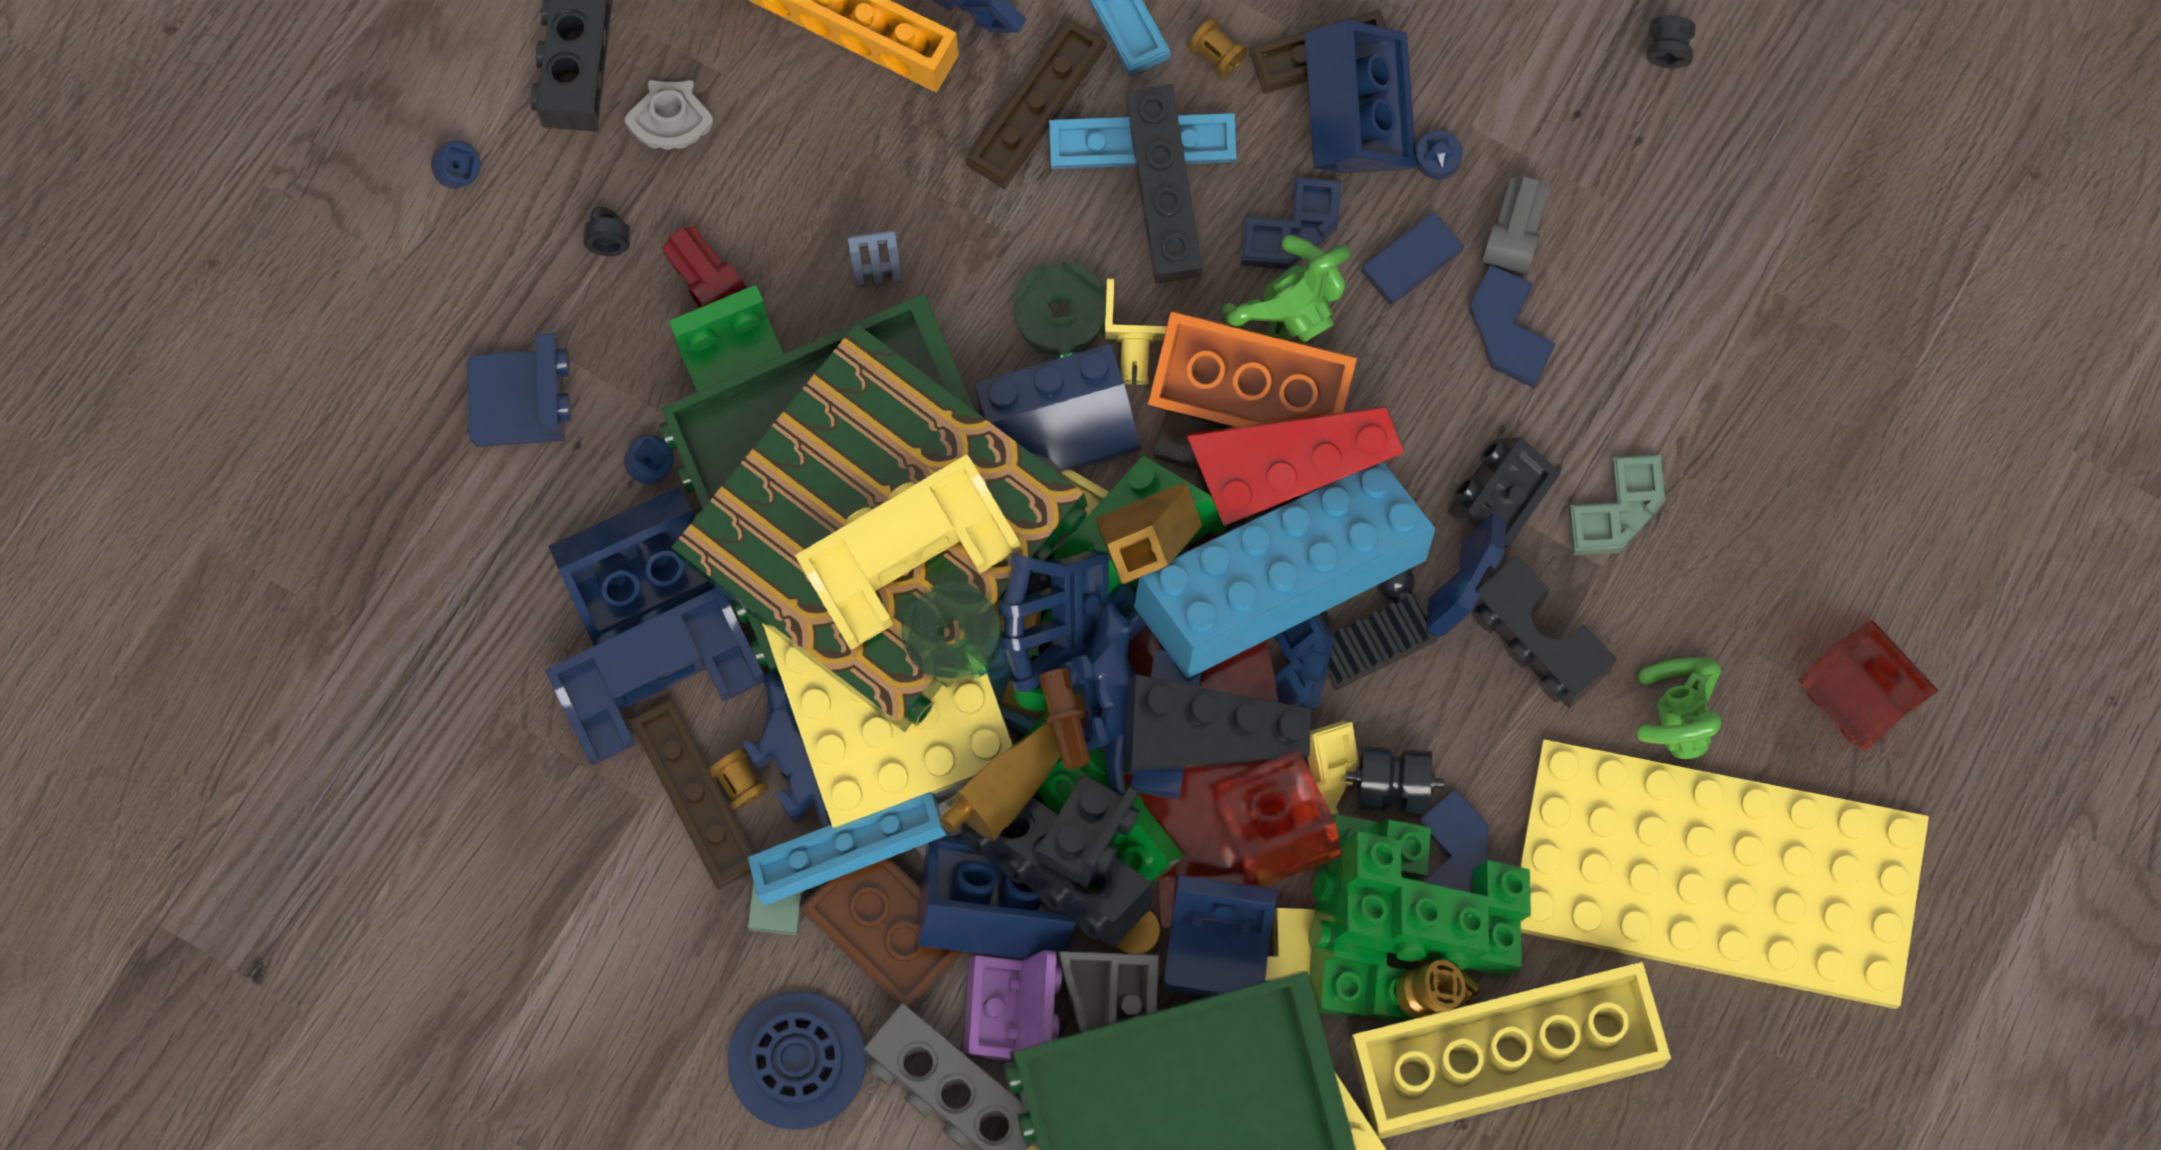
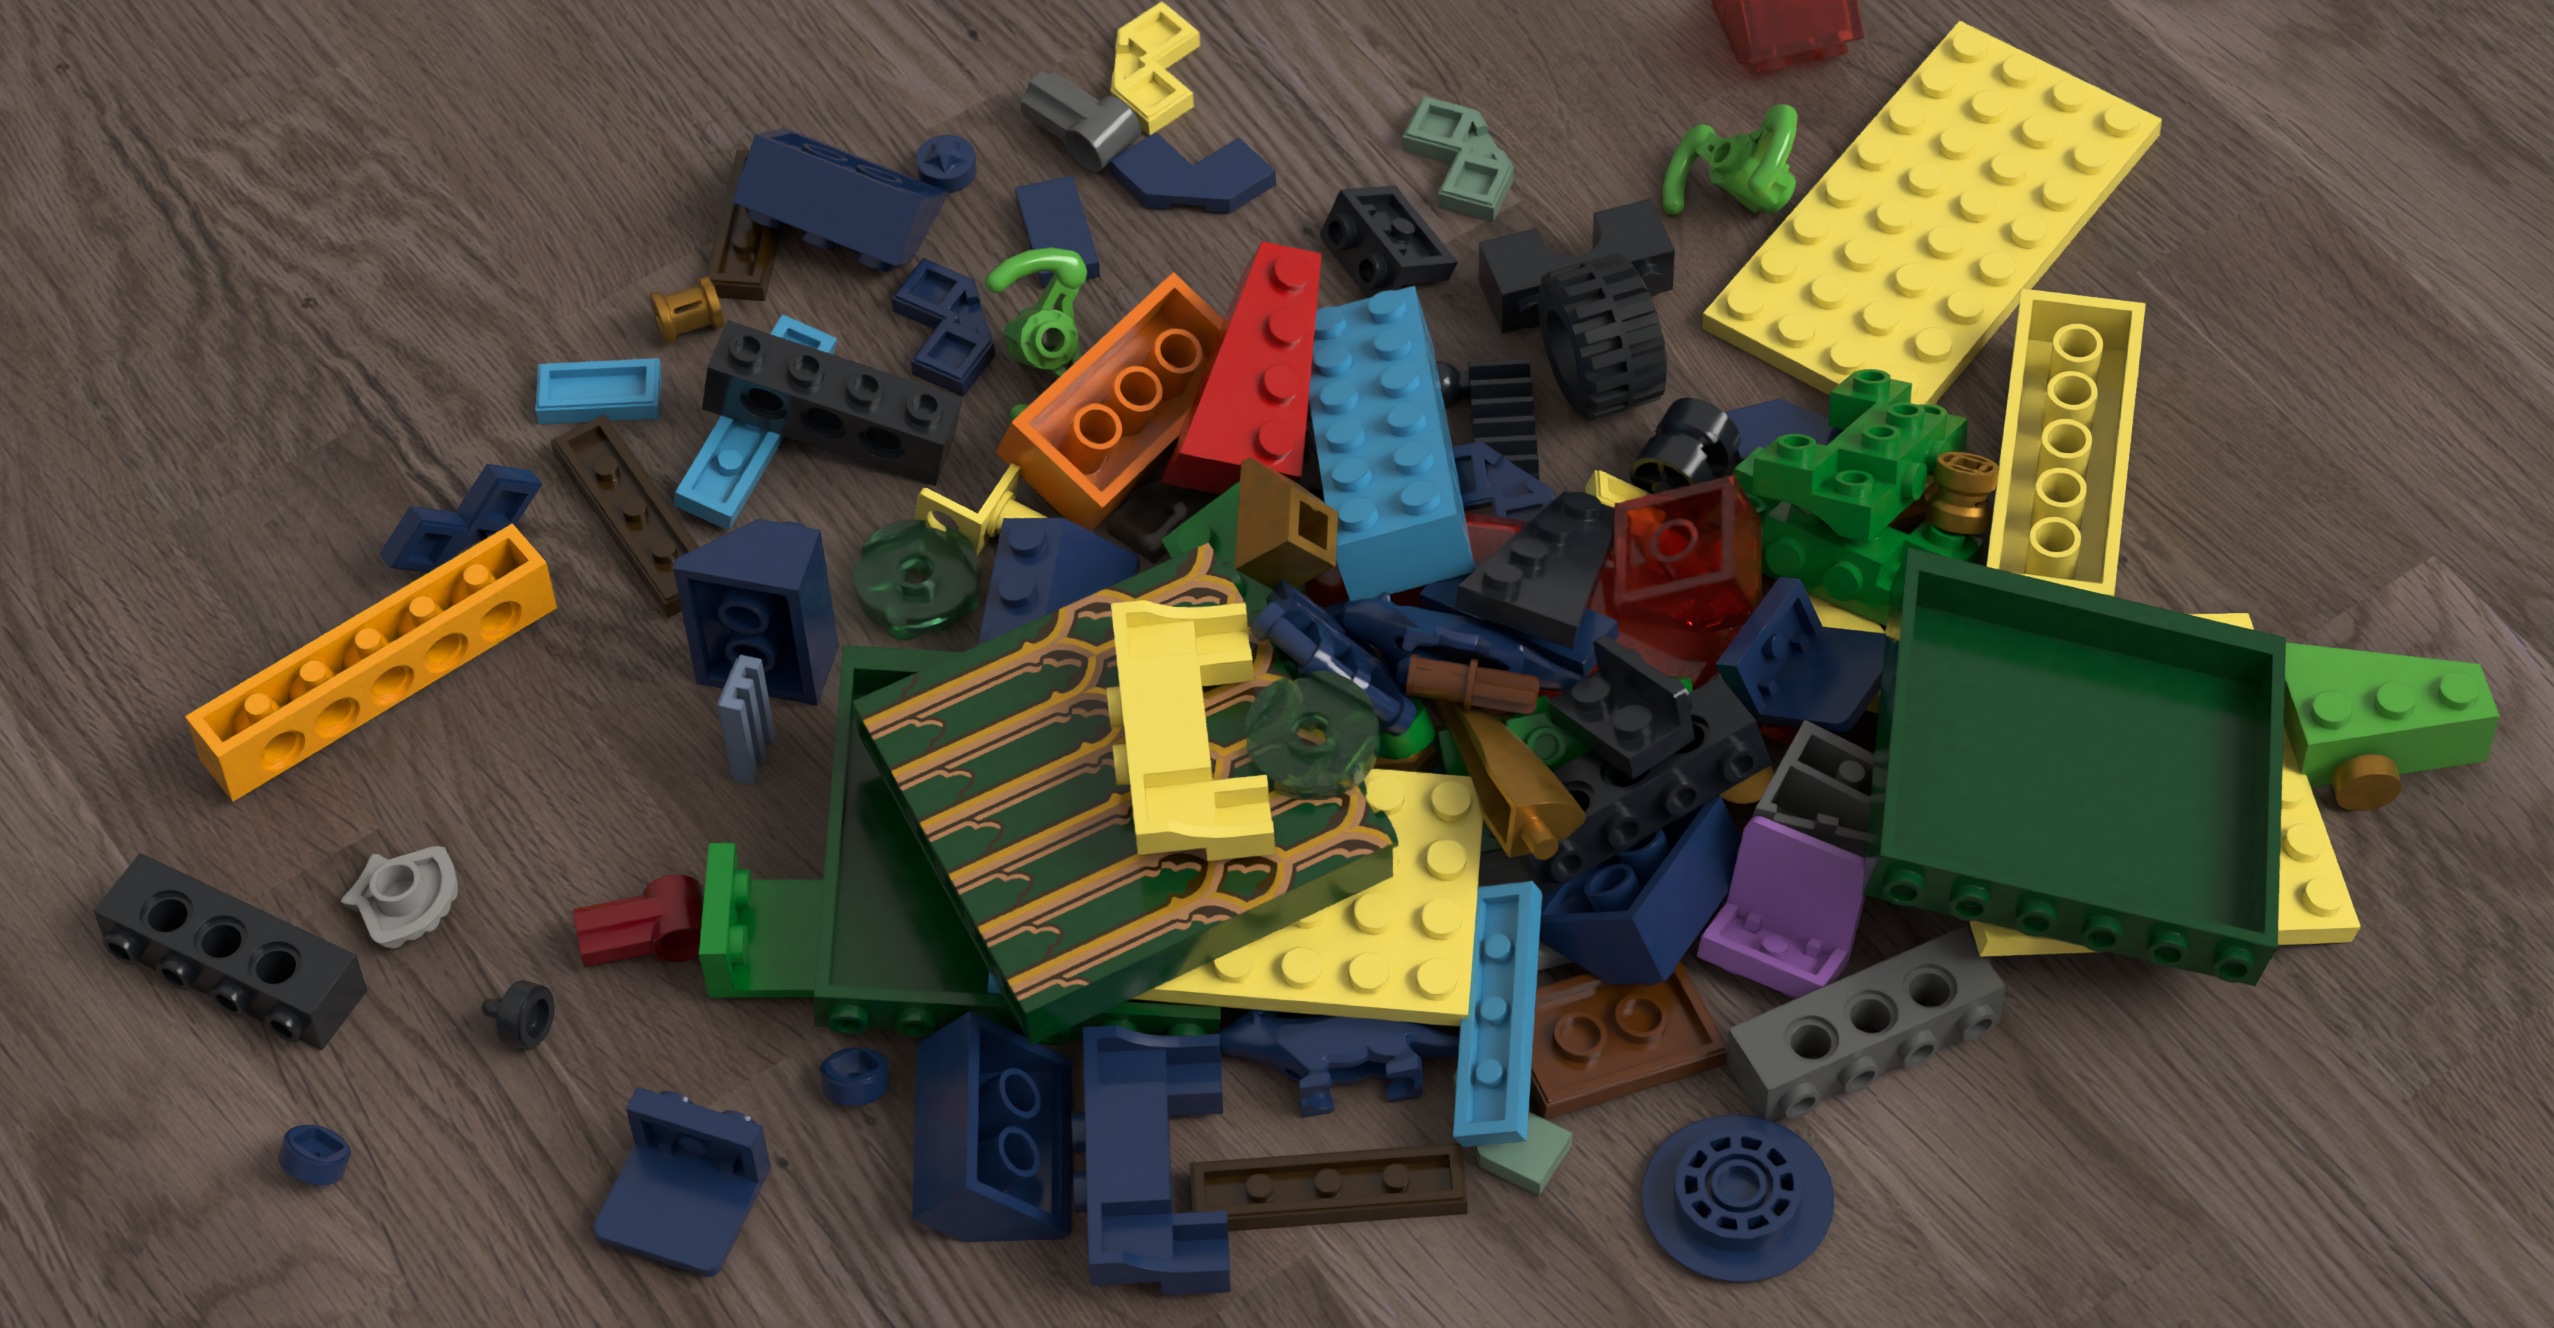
camera: 65 degrees left, 20 degrees down
(738, 779) = (1340, 1121): pearl gold bush -> none
(956, 229) = (761, 598): none -> dark blue slope
(1298, 300) = (1068, 300): bright green piece -> none
(1458, 597) = (1499, 306): dark blue tile -> none
(1459, 678) = (1602, 336): none -> black tyre
(1615, 240) = (1142, 55): none -> light yellow tile

